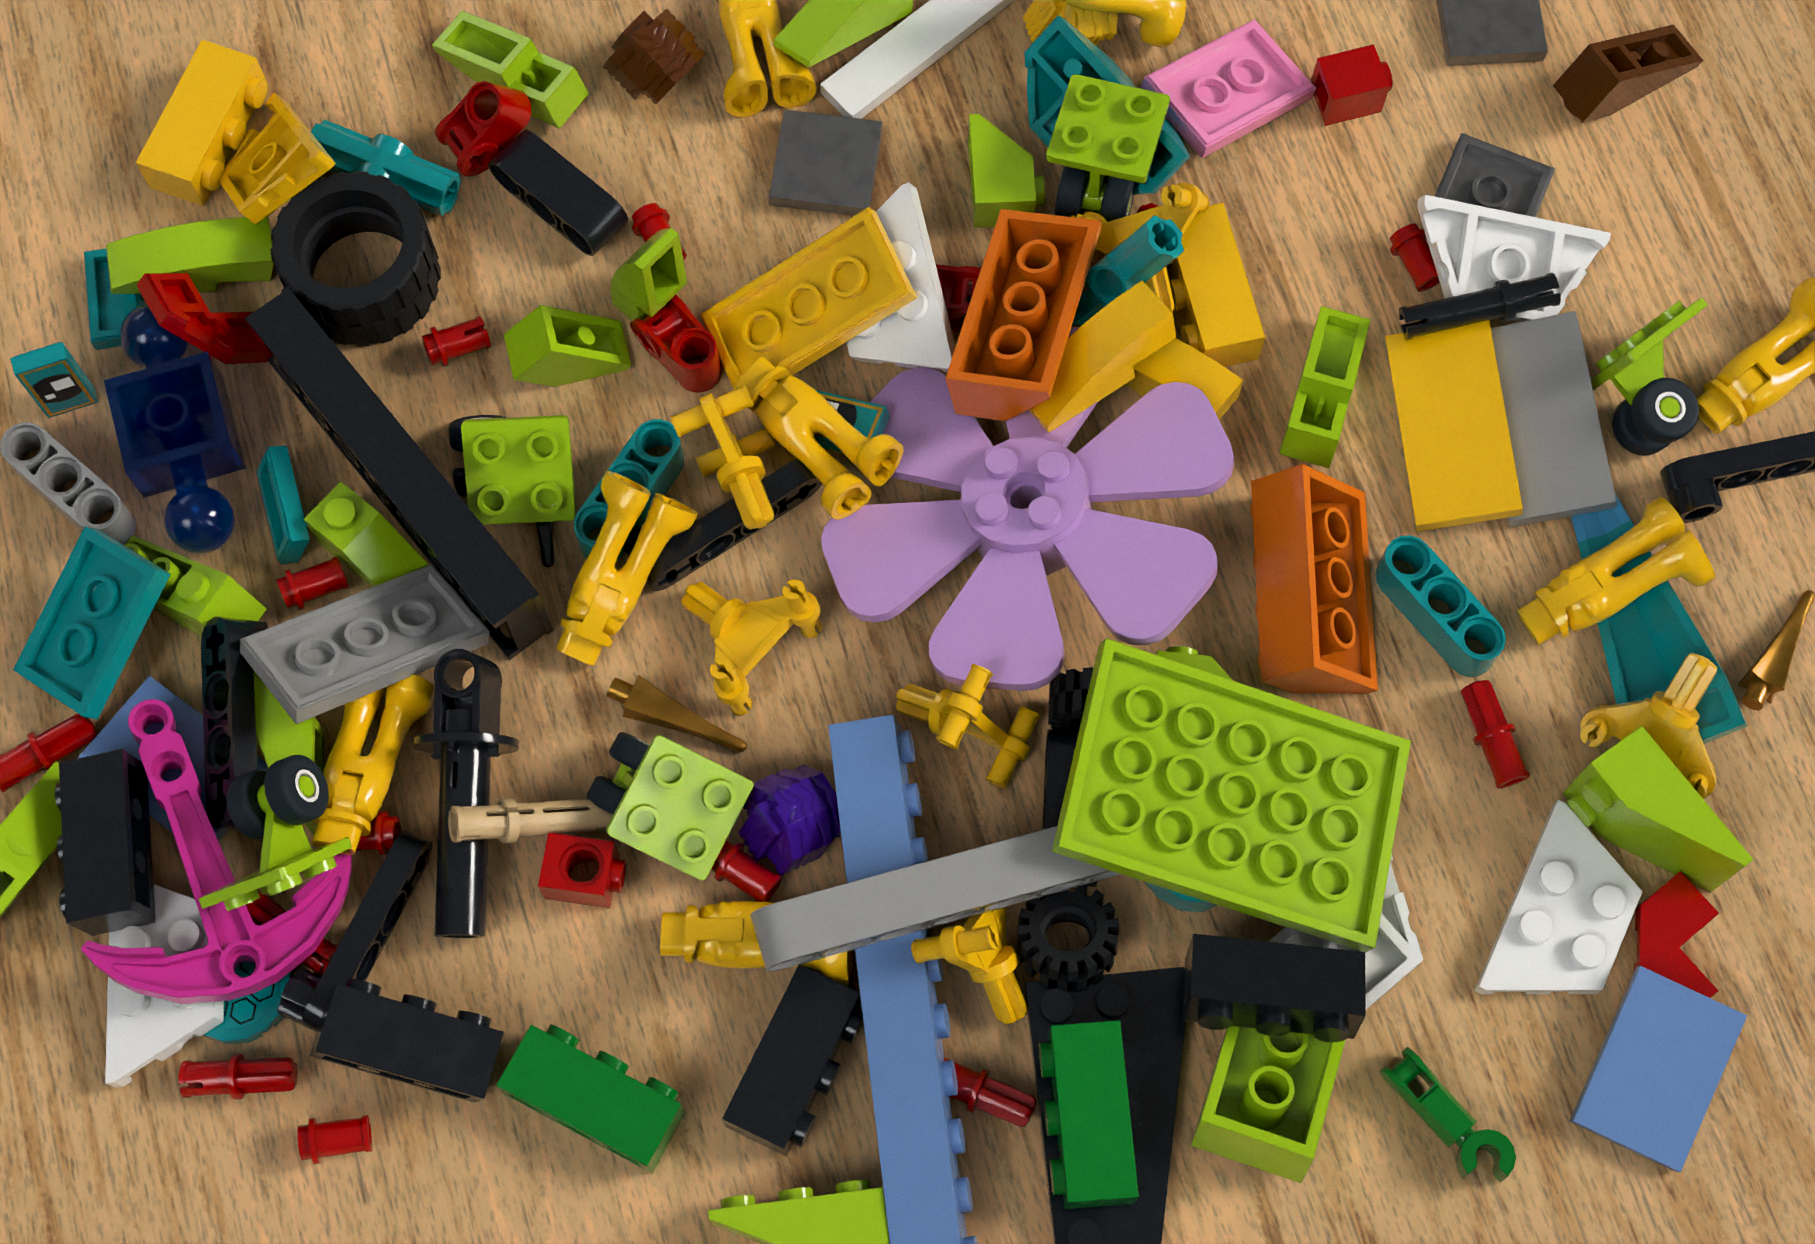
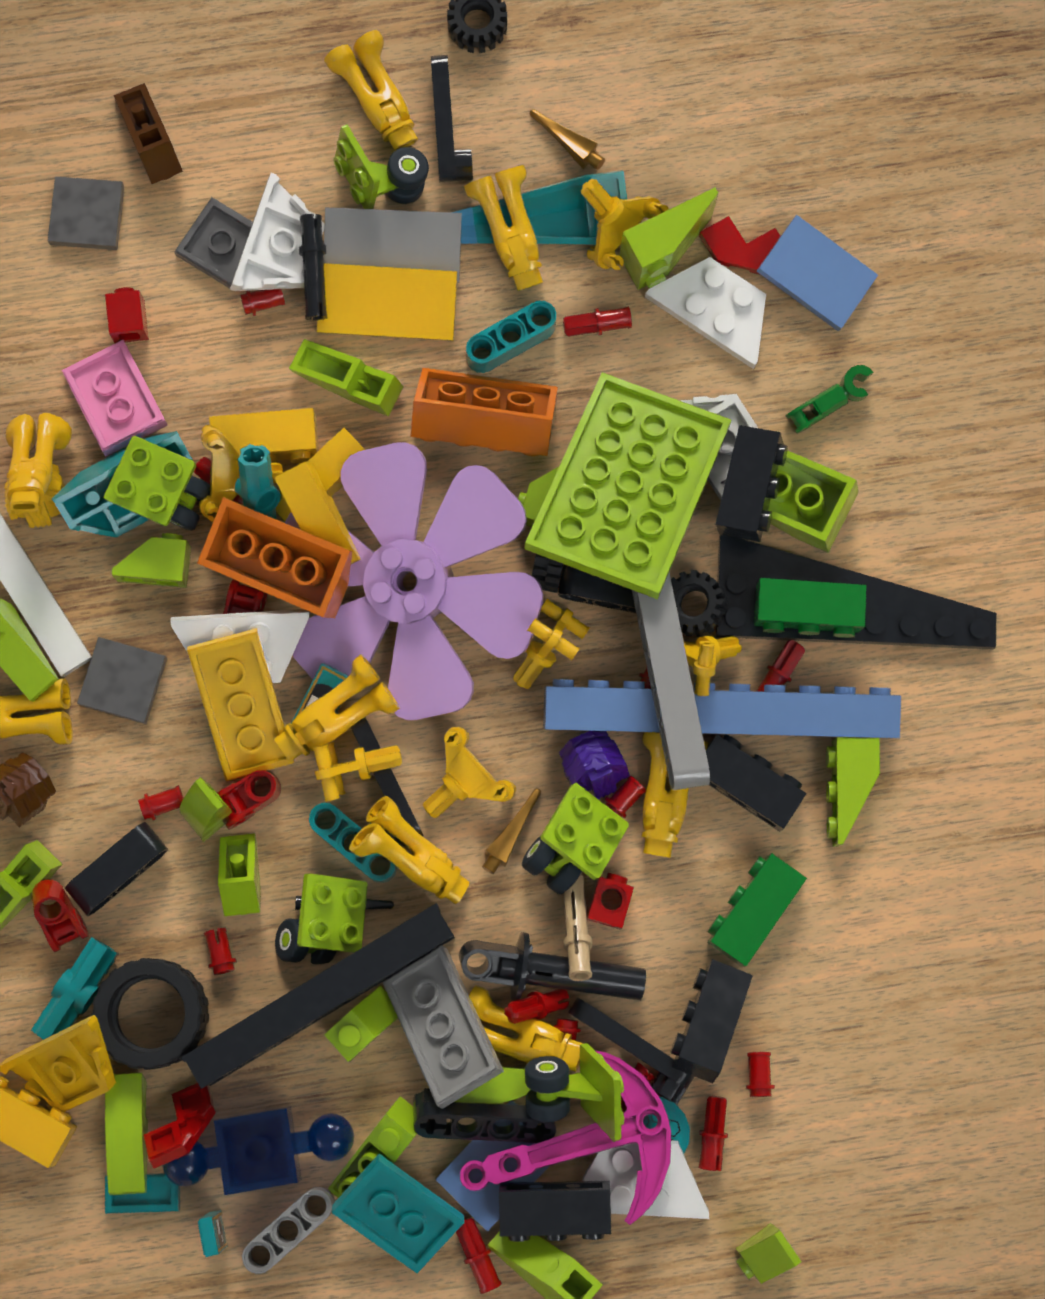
camera: 85 degrees left, 10 degrees up
(52, 1180) = (766, 1255): none -> lime slope
(282, 505) = (326, 1080): teal tile -> none
(312, 583) = (384, 1064): red pin -> none
(409, 775) = (536, 1005): none -> red axle

